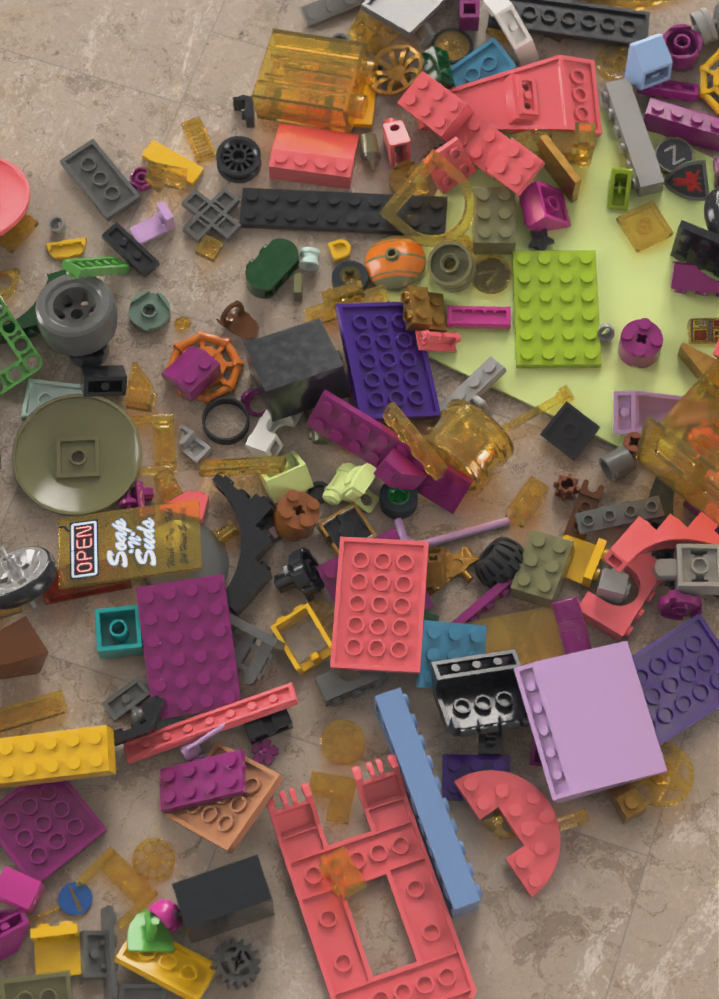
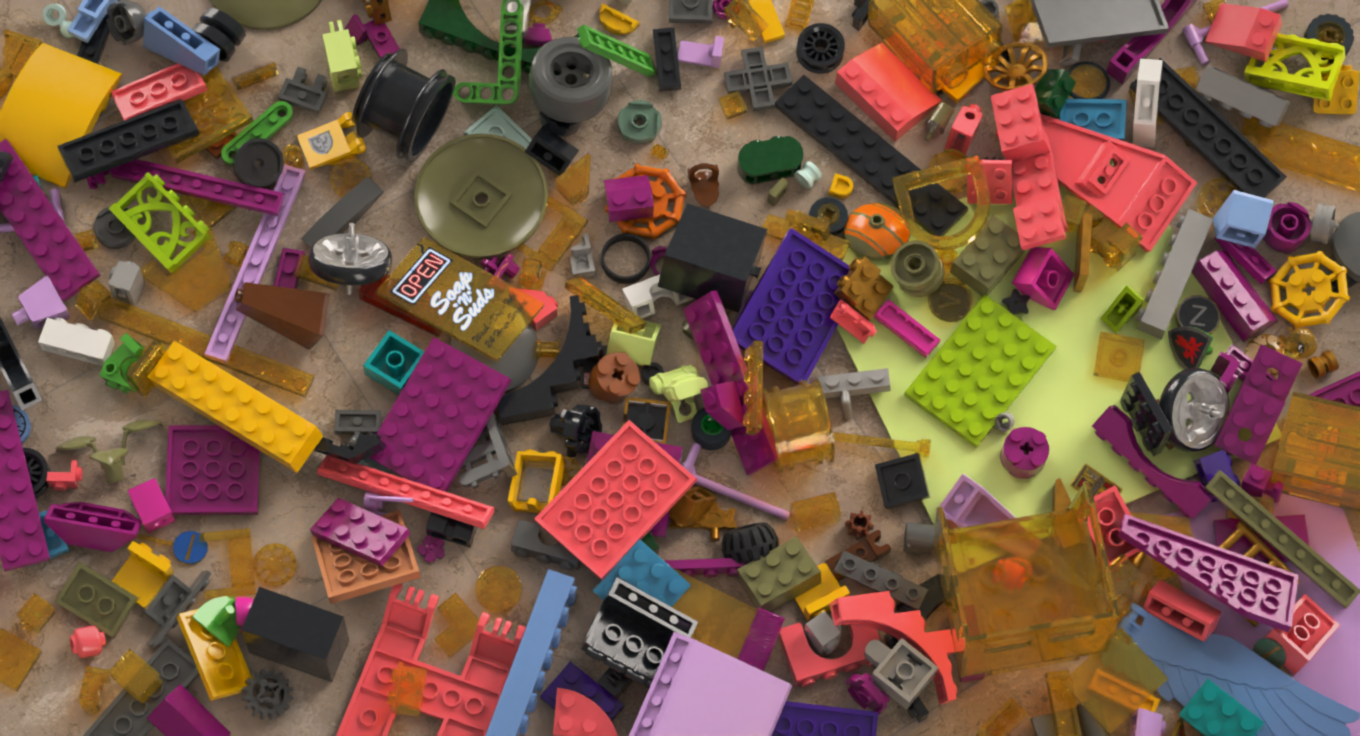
camera: 35 degrees right, 0 degrees up
(17, 301) = (537, 34): none -> magenta cone

